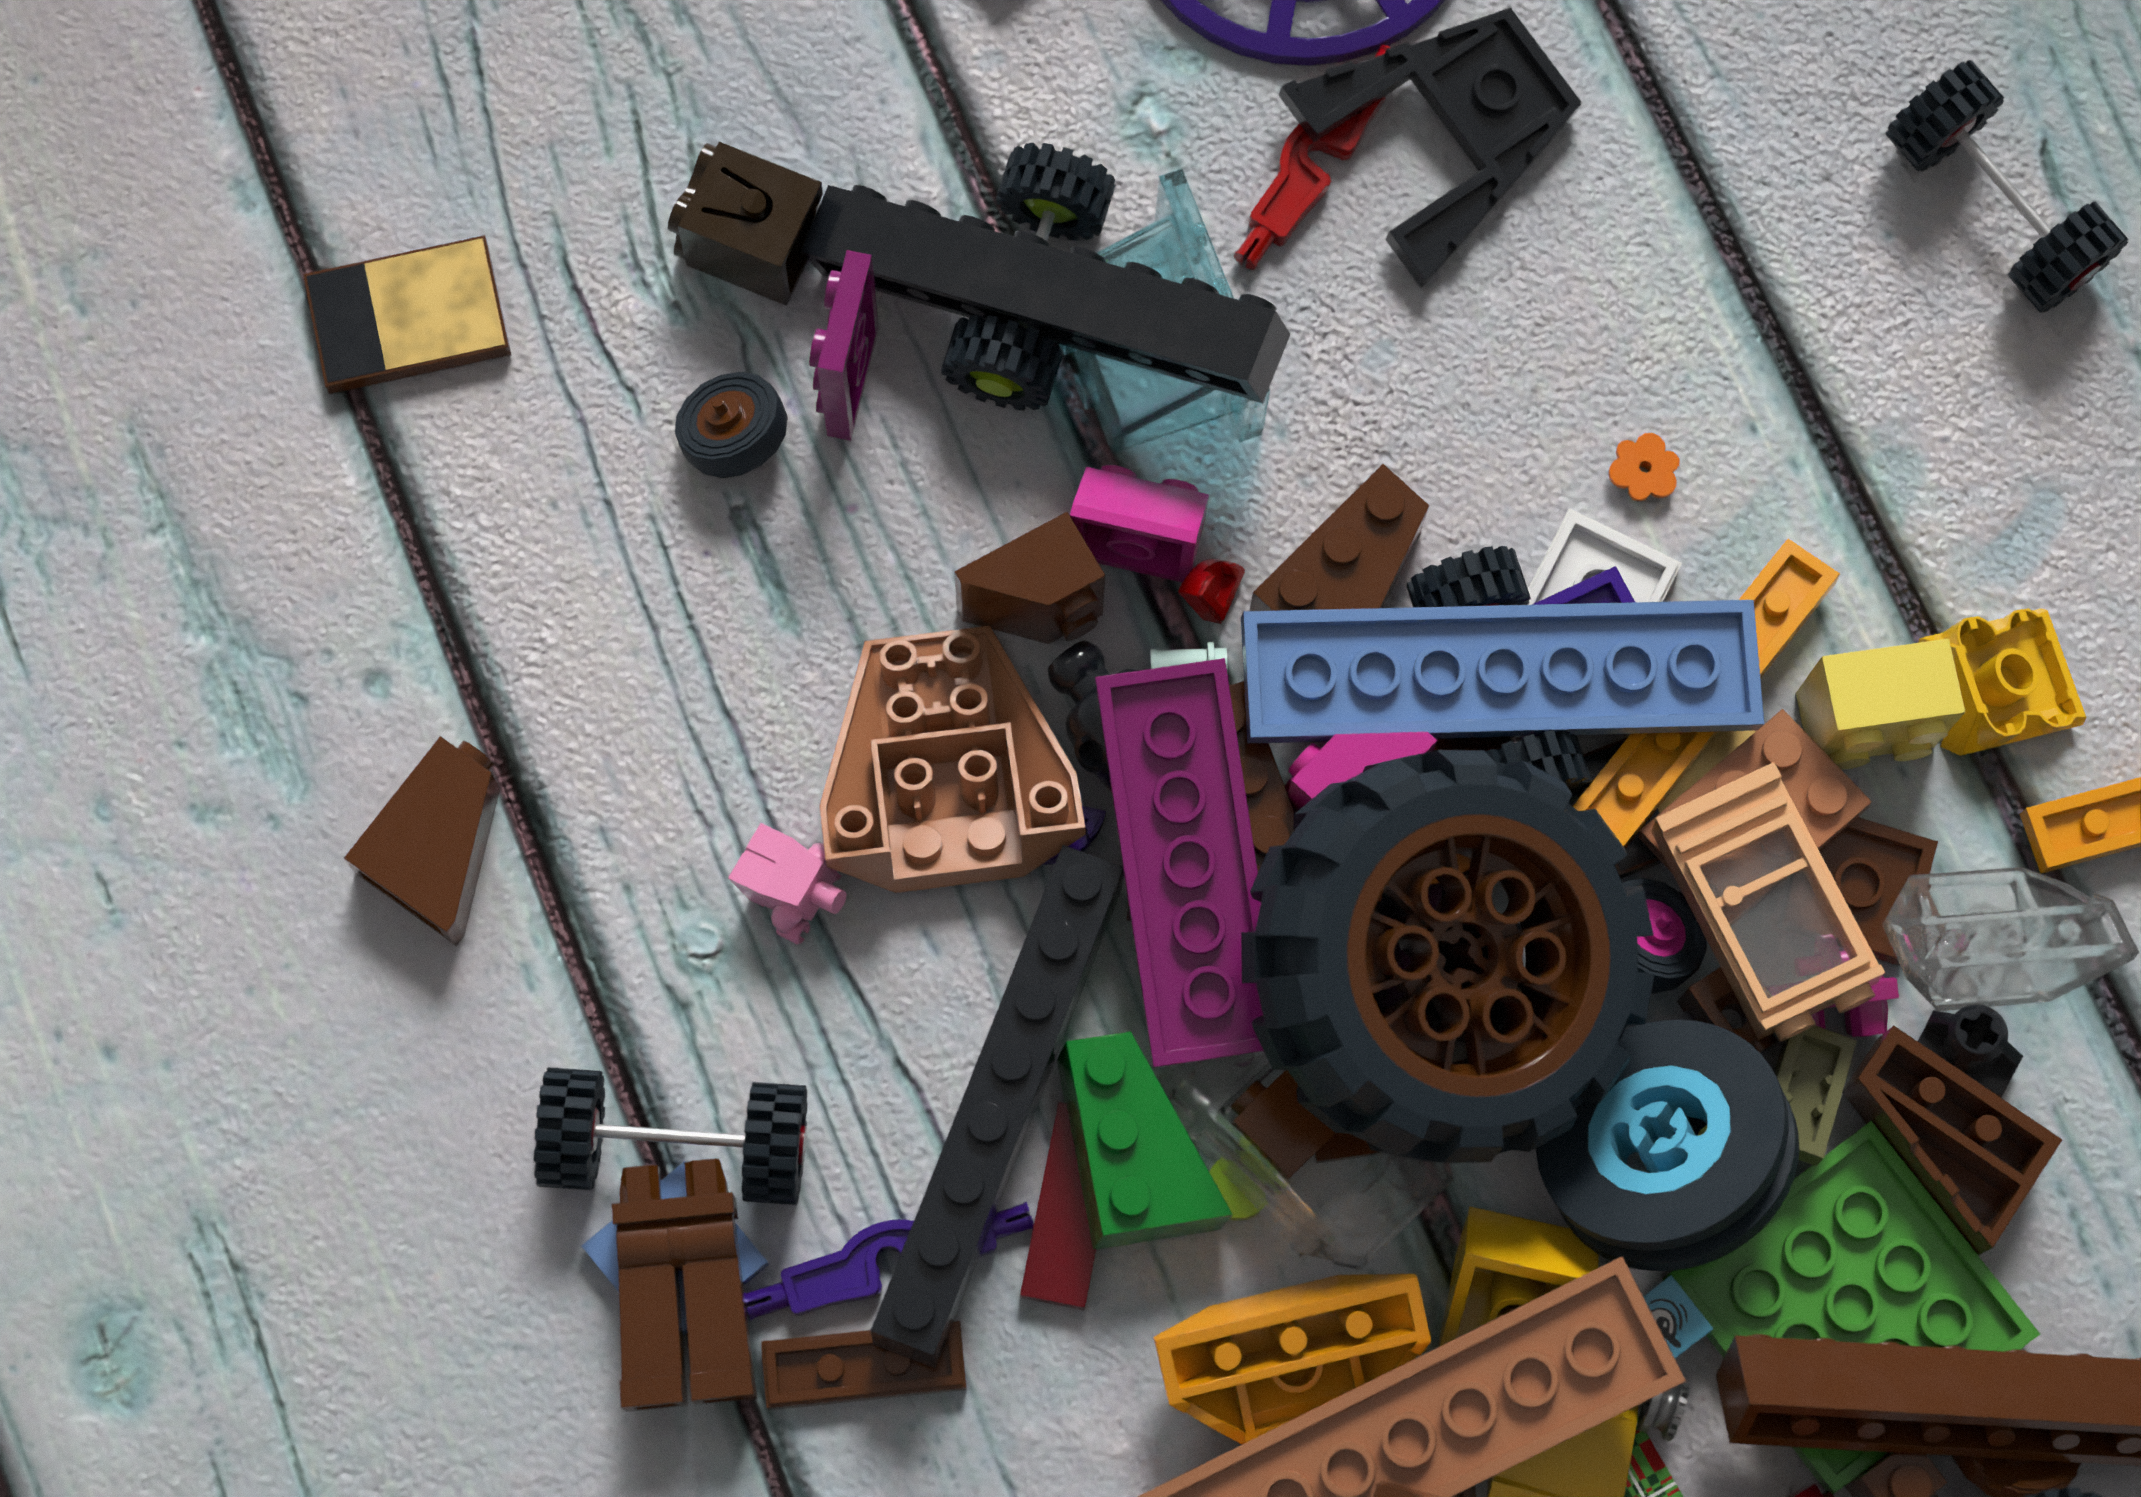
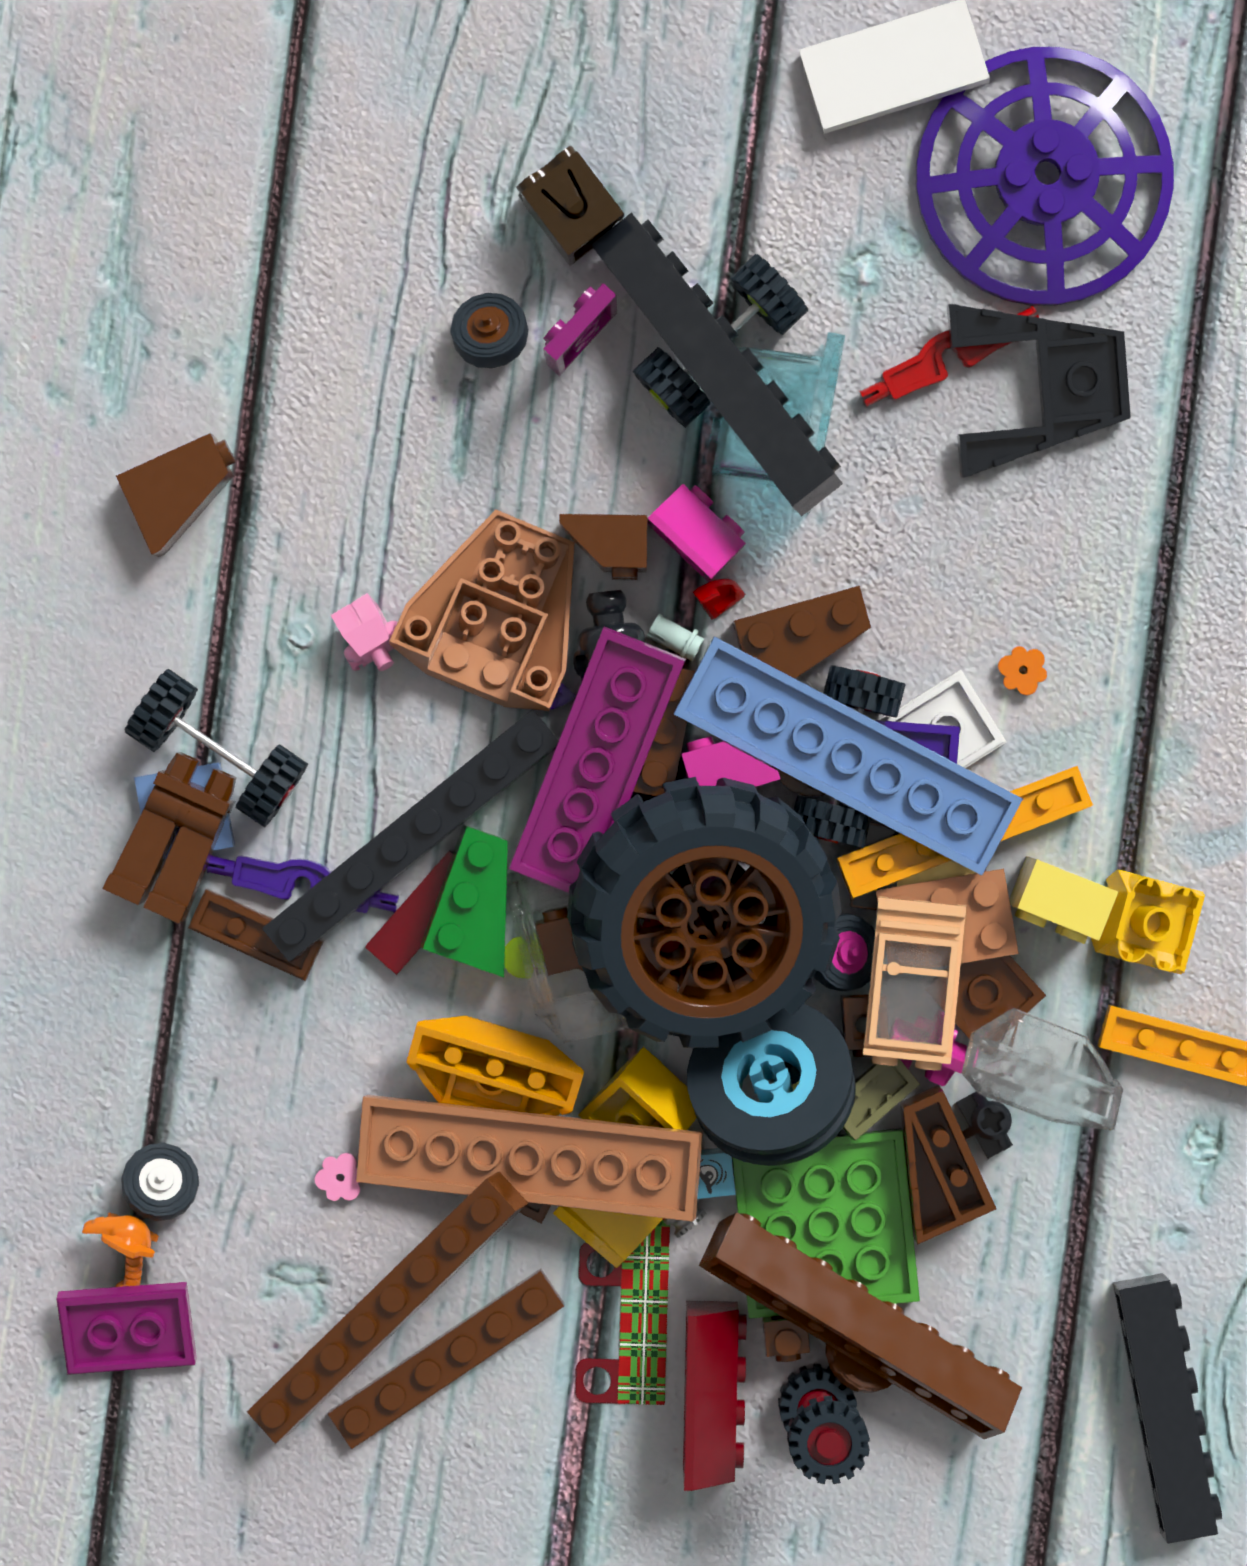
camera: 30 degrees right, 15 degrees up
(406, 314) = (335, 142): tile -> none

